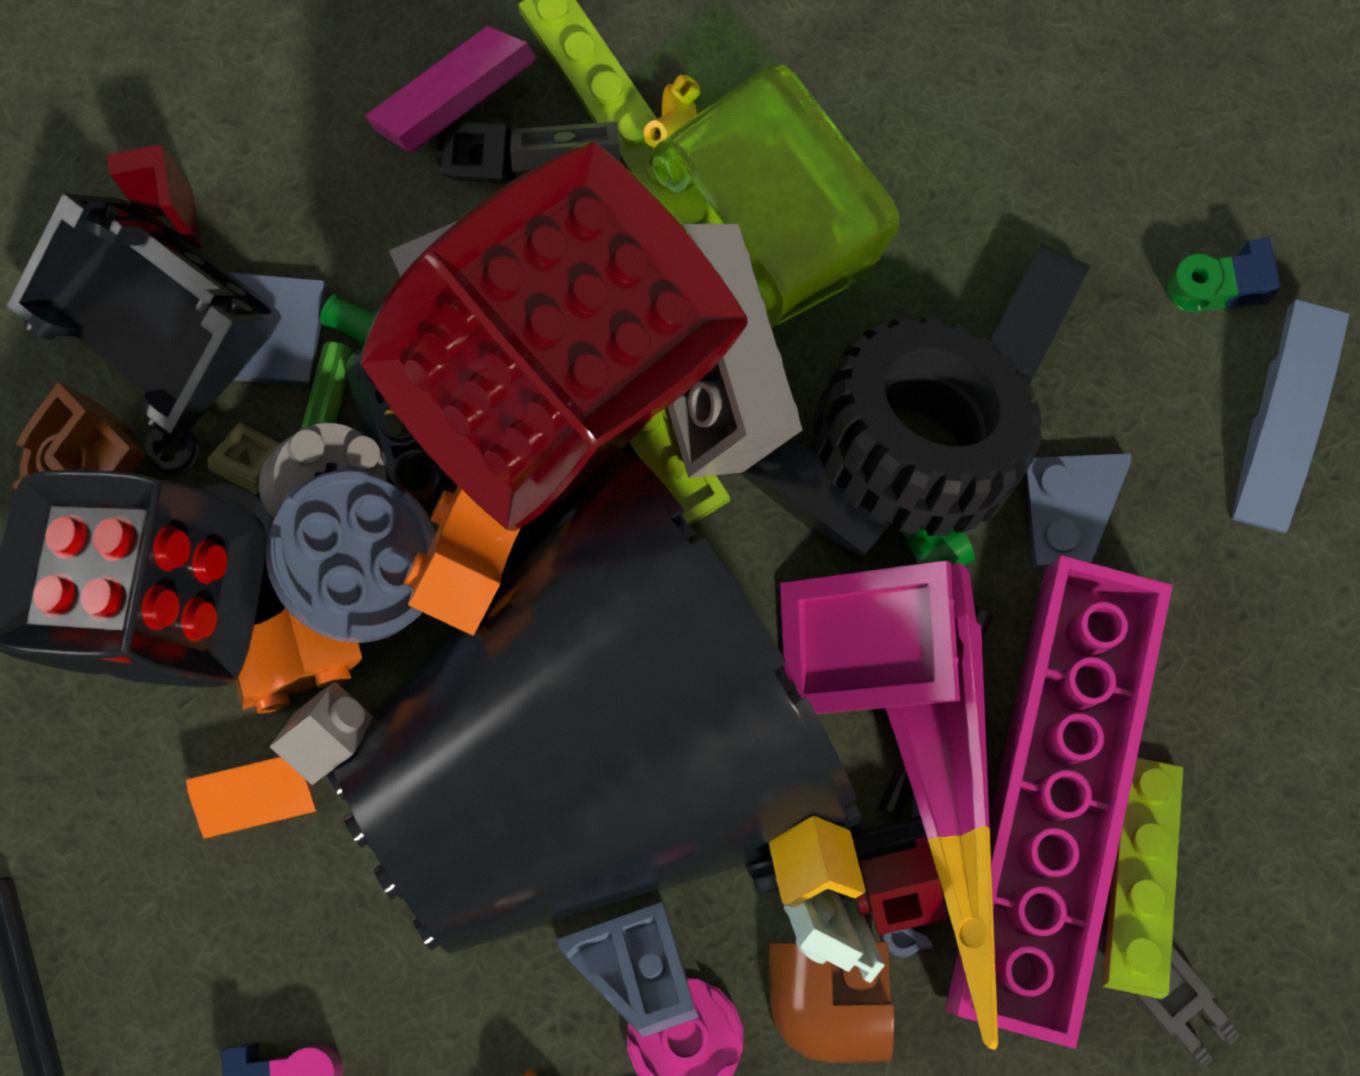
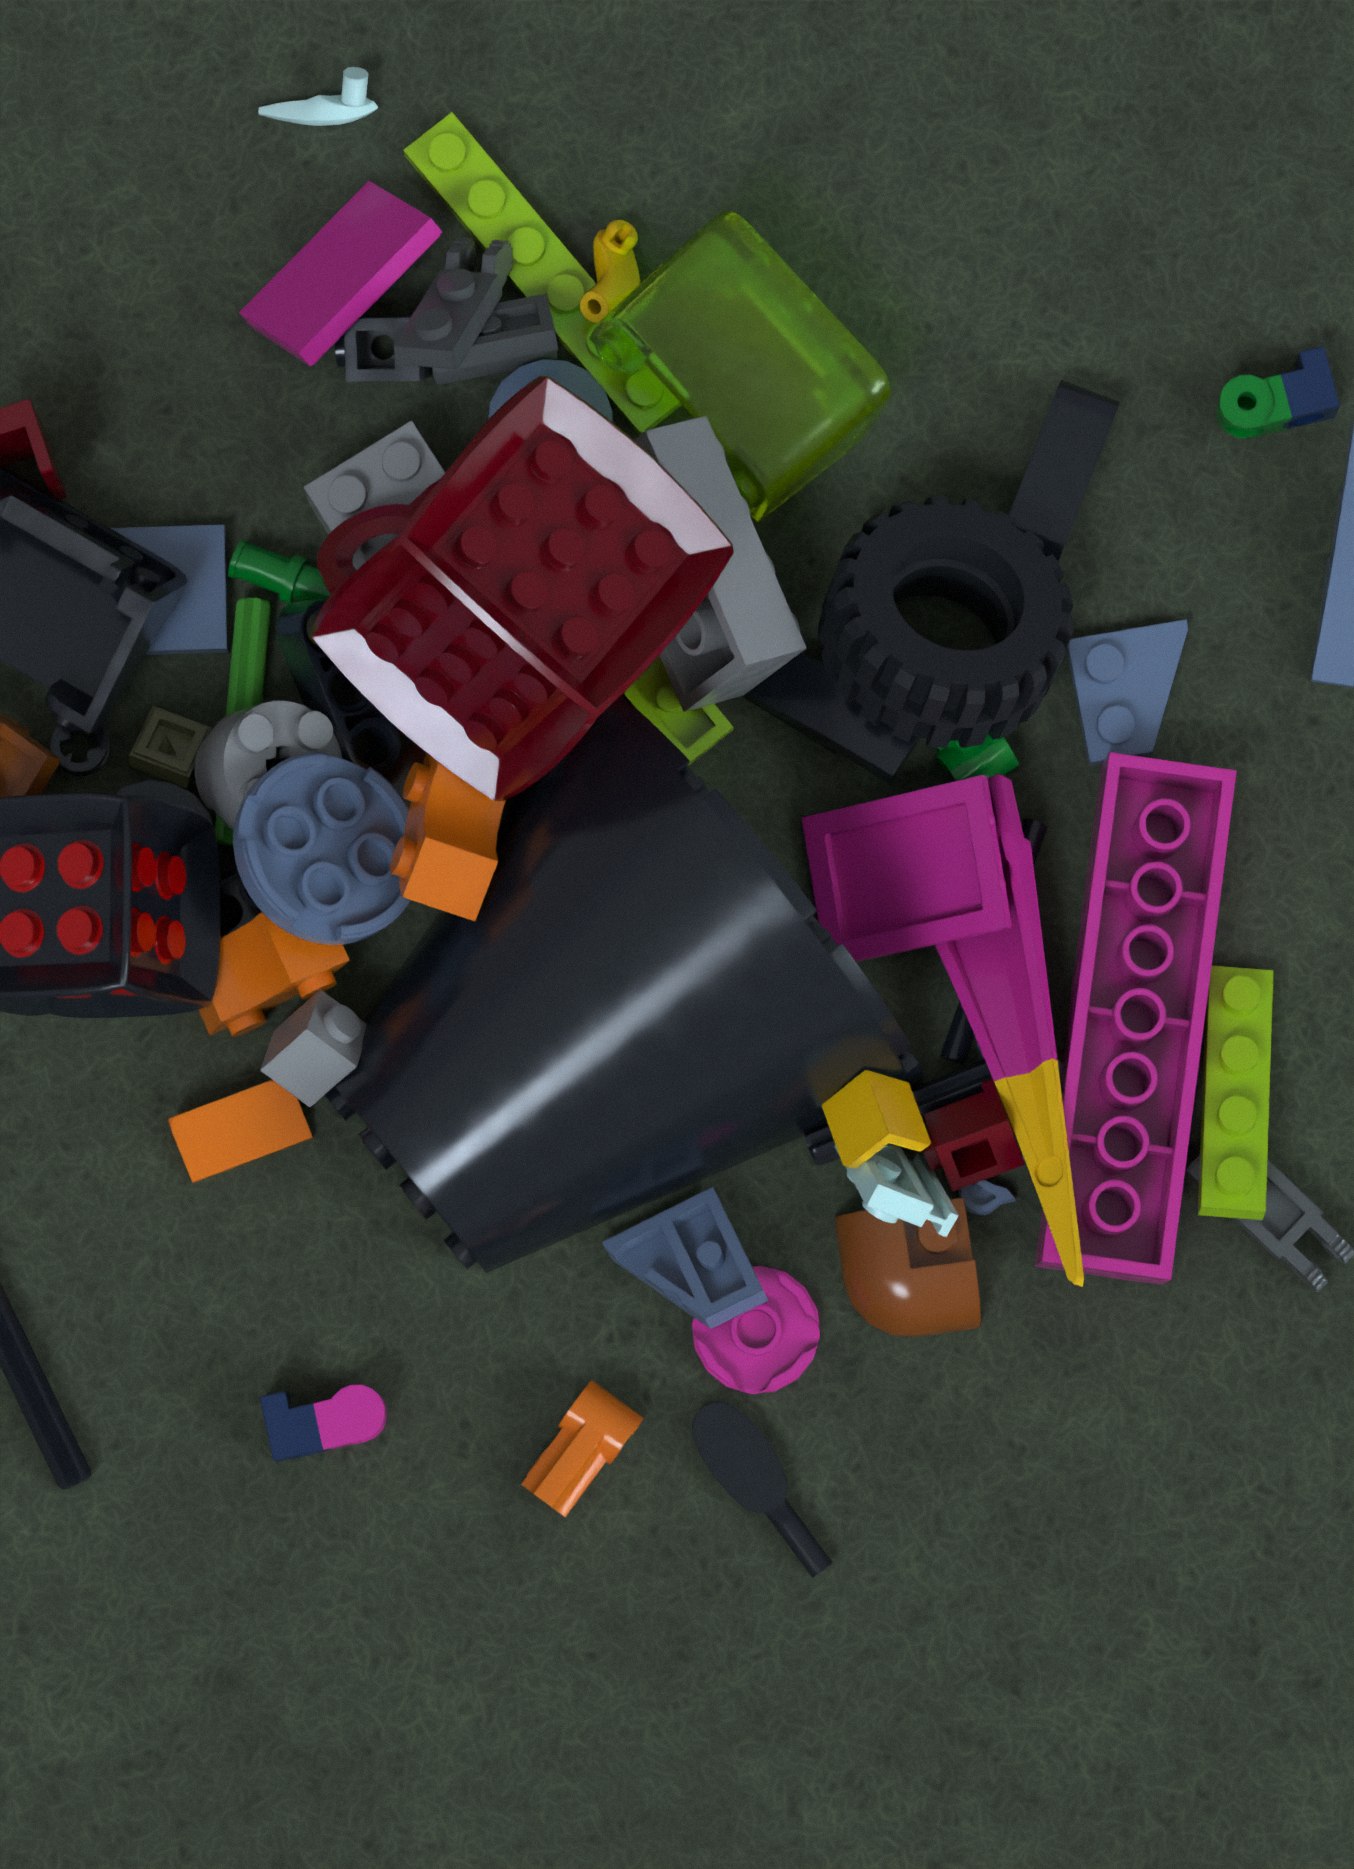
camera: 10 degrees left, 5 degrees up
(538, 119) = (455, 306): none -> dark grey hinge

